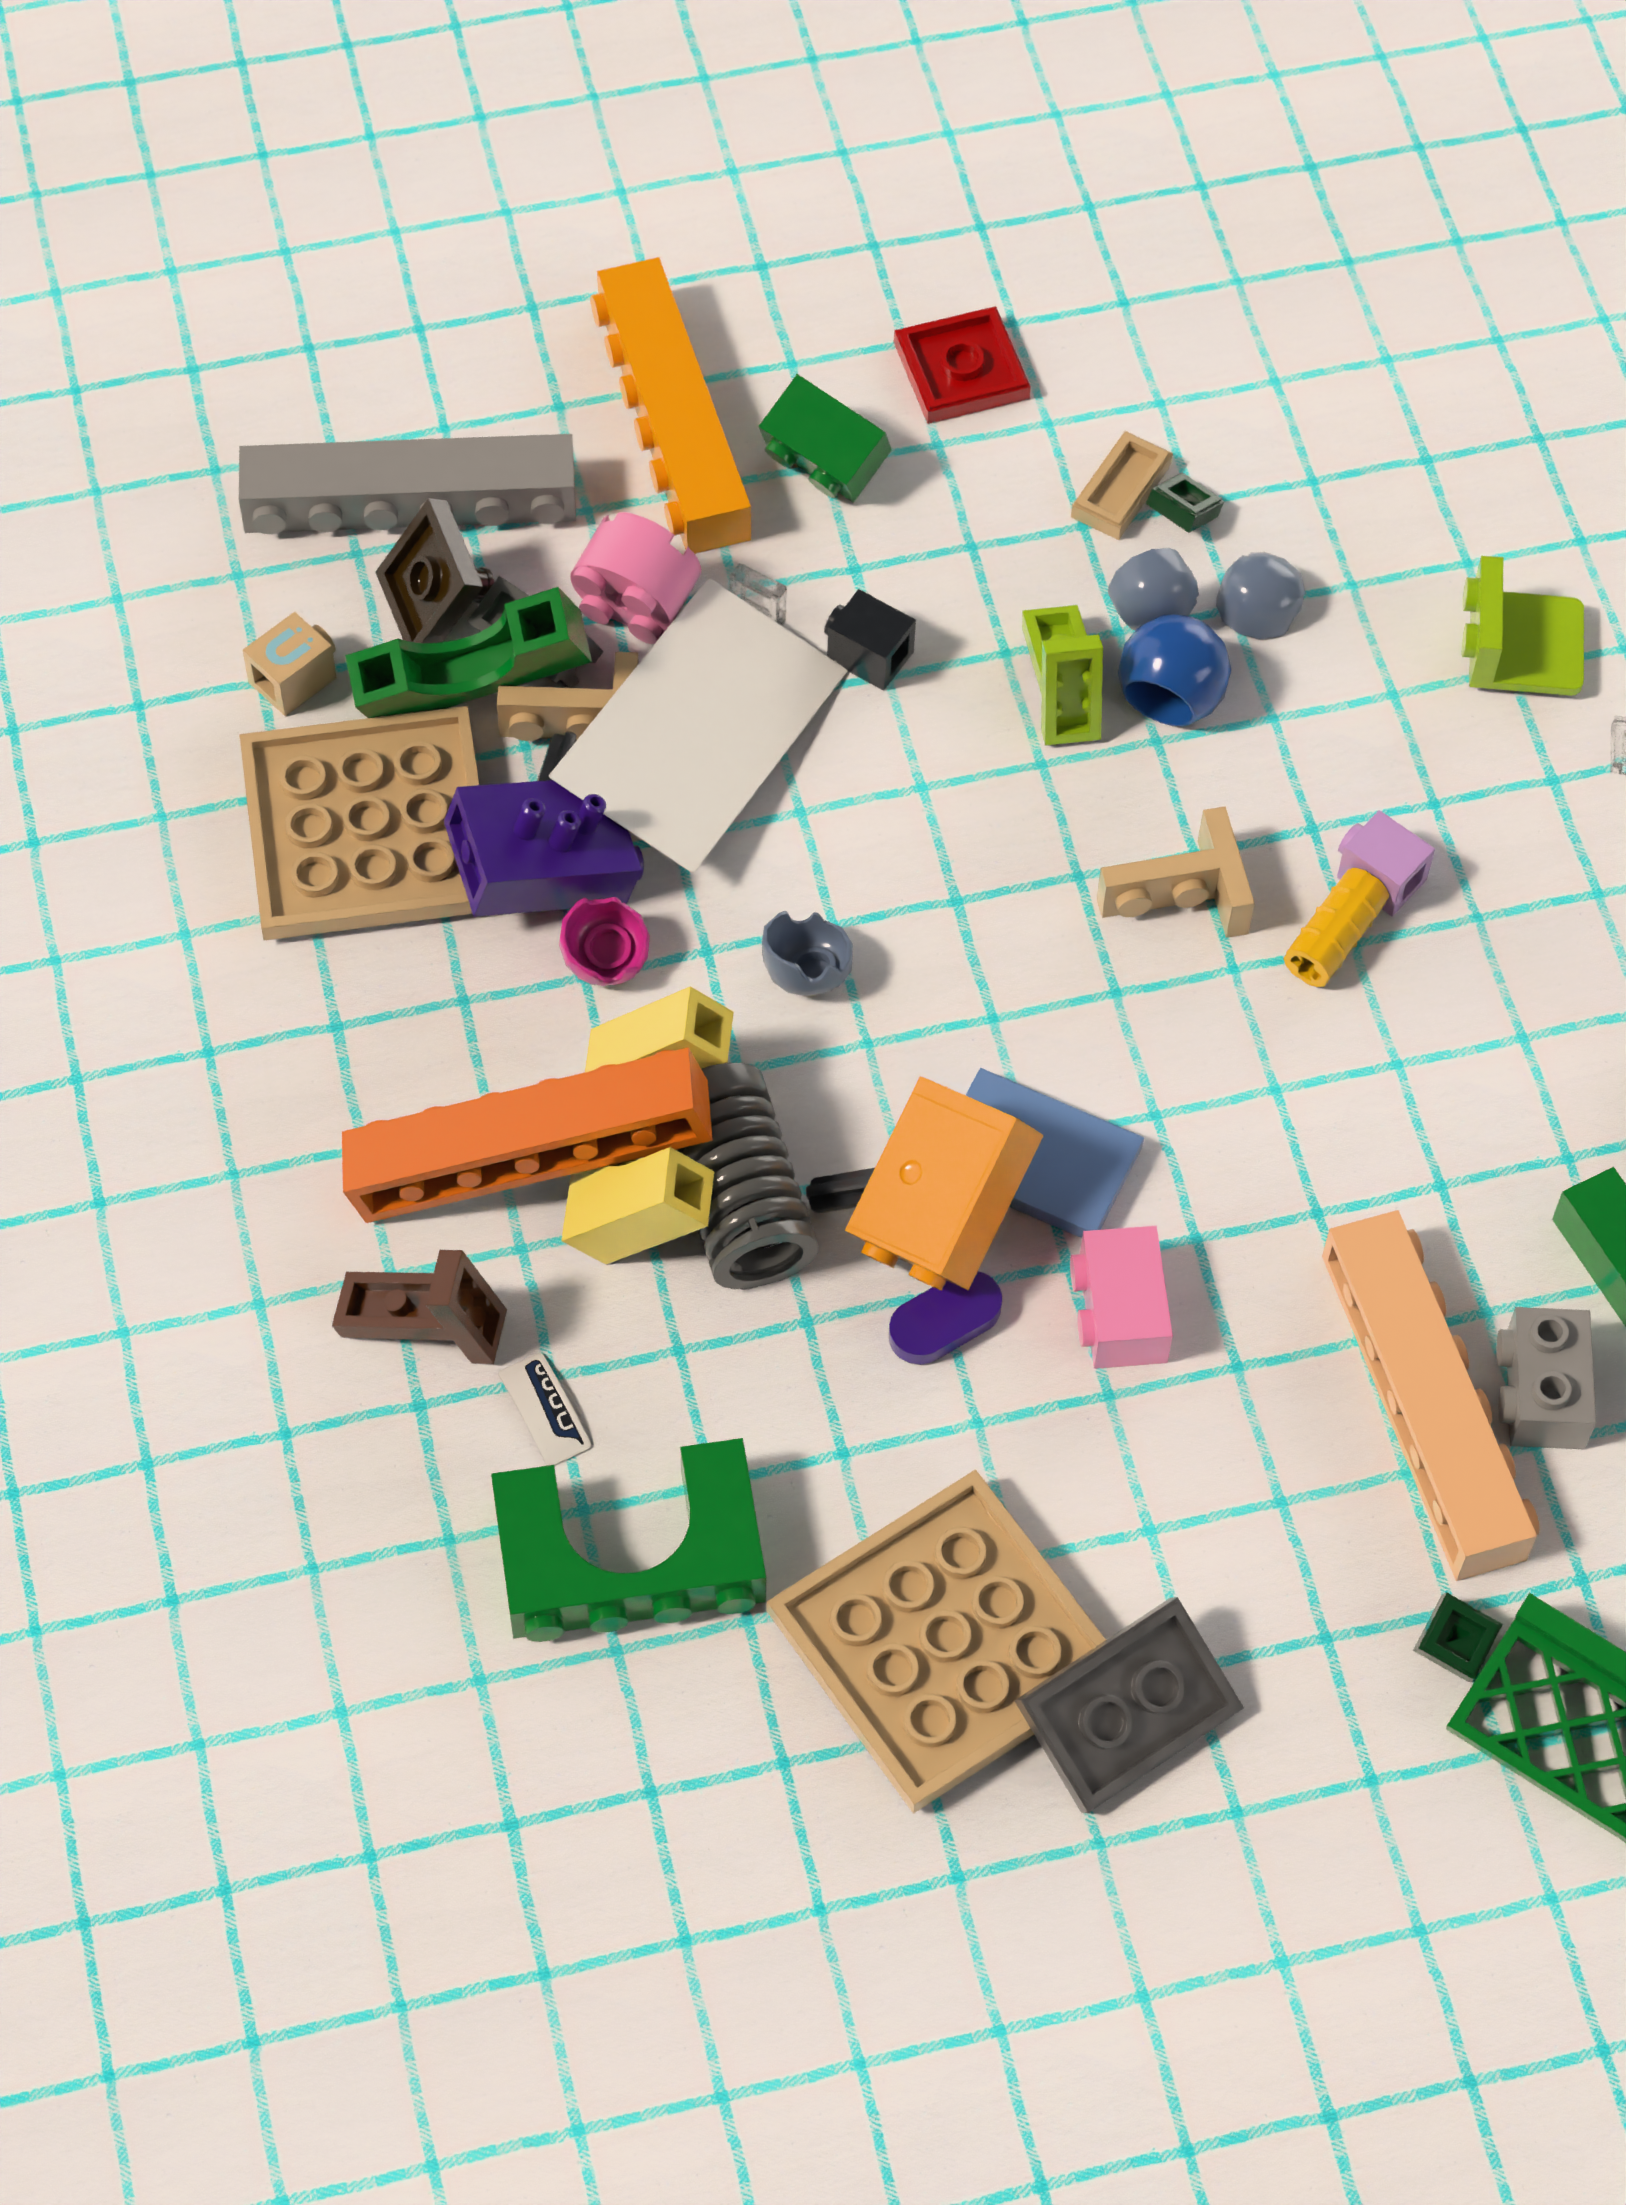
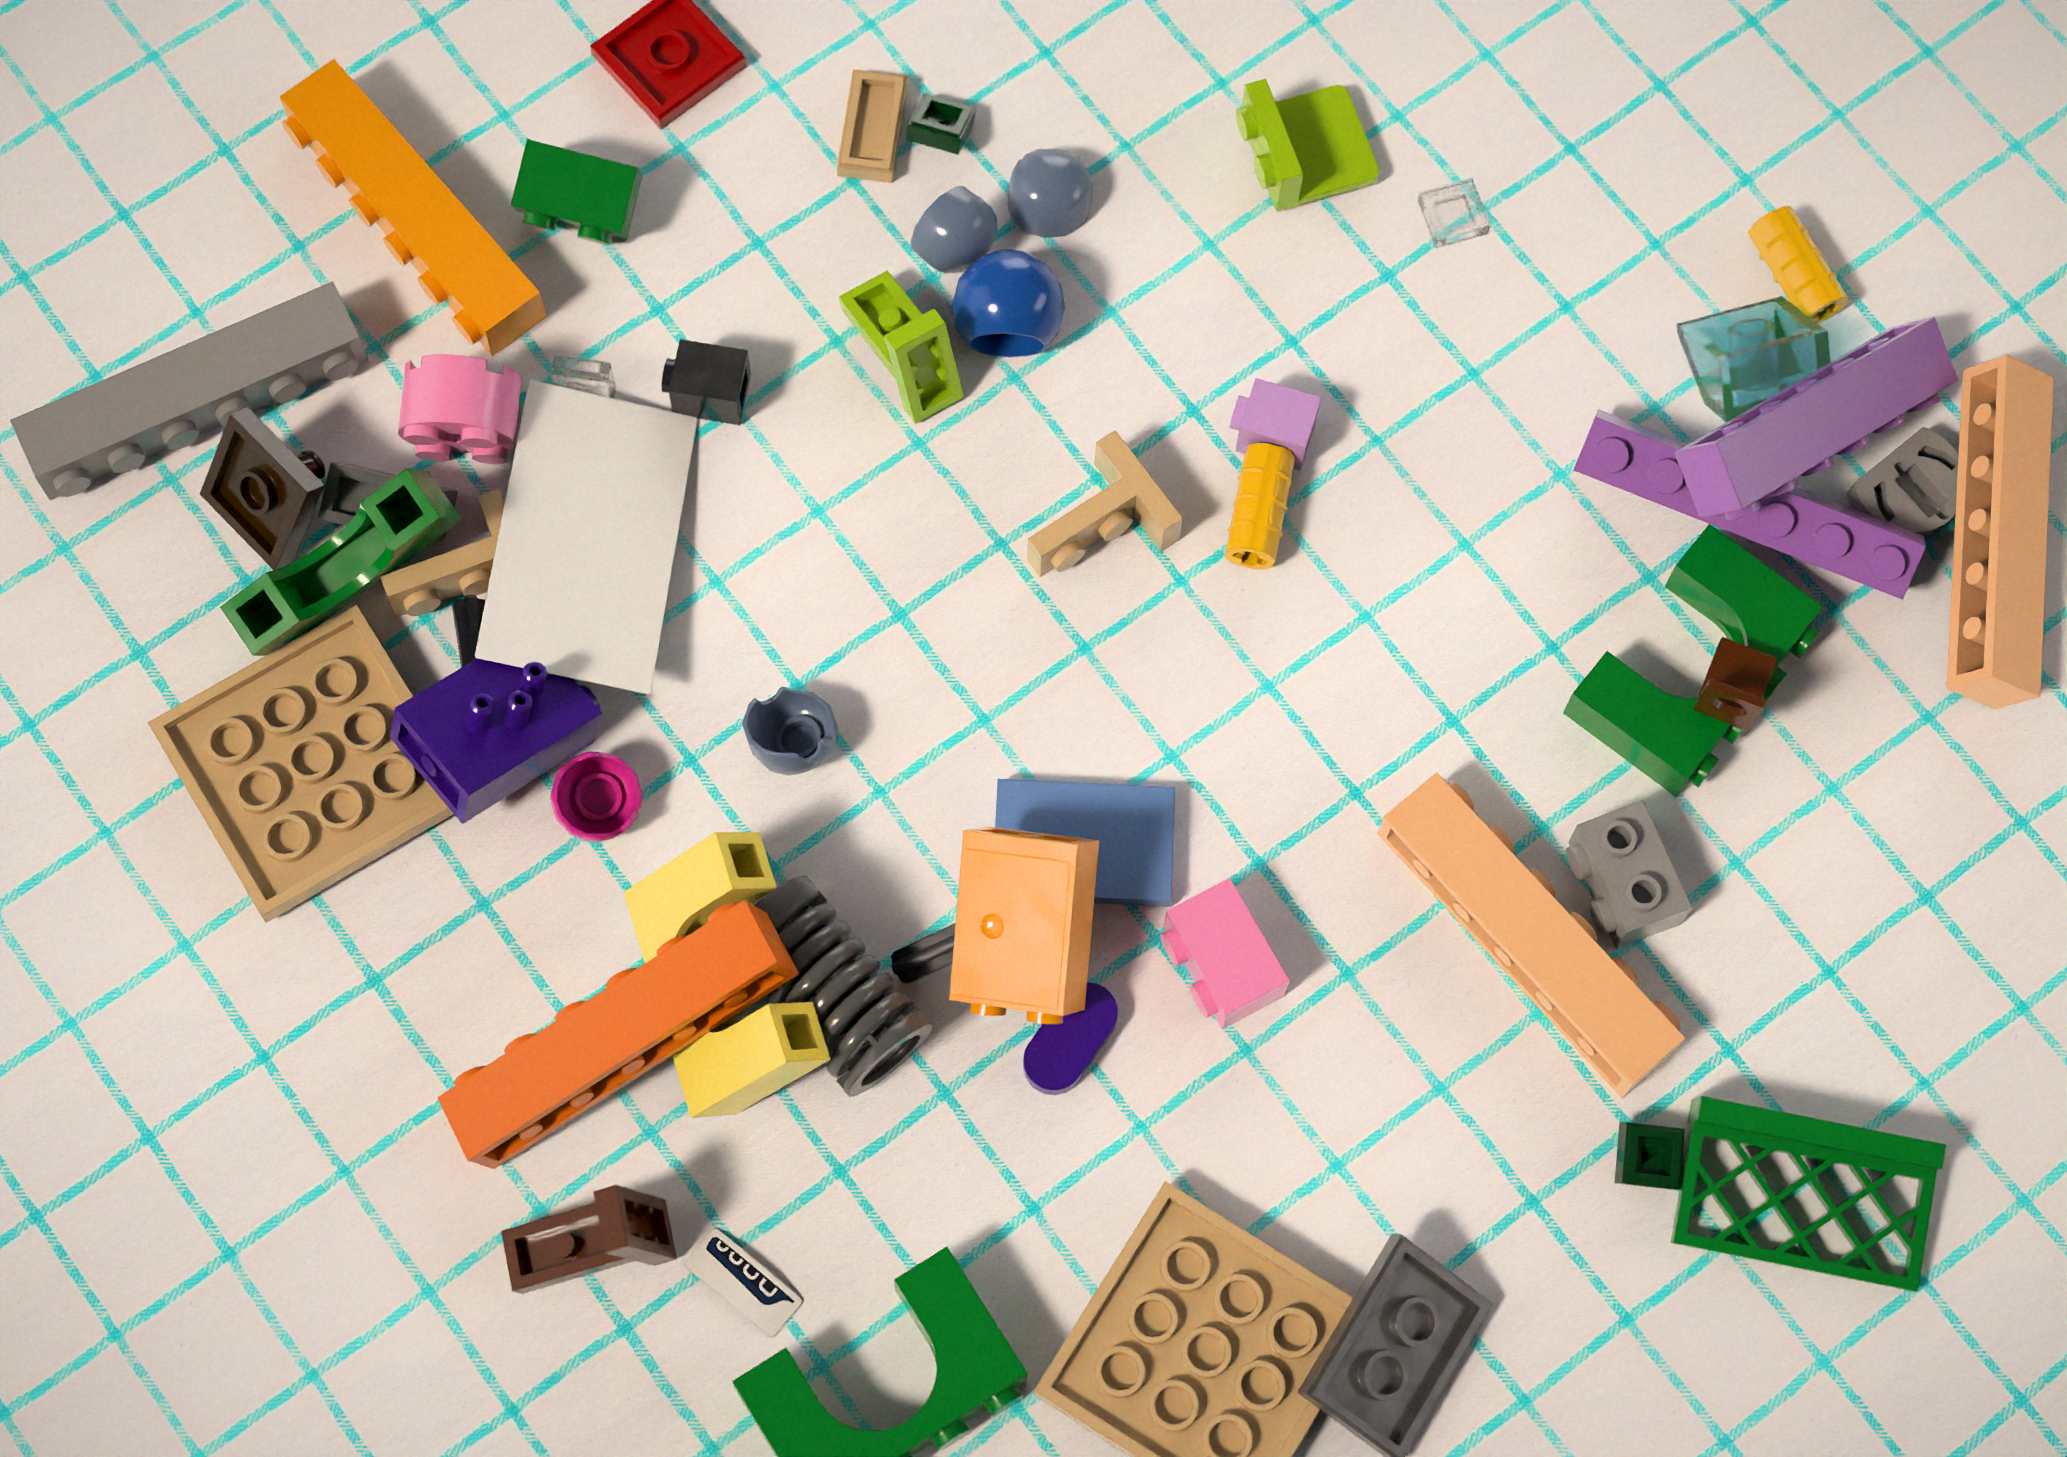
camera: 25 degrees left, 10 degrees up
(290, 663) = (162, 625): tan brick -> none

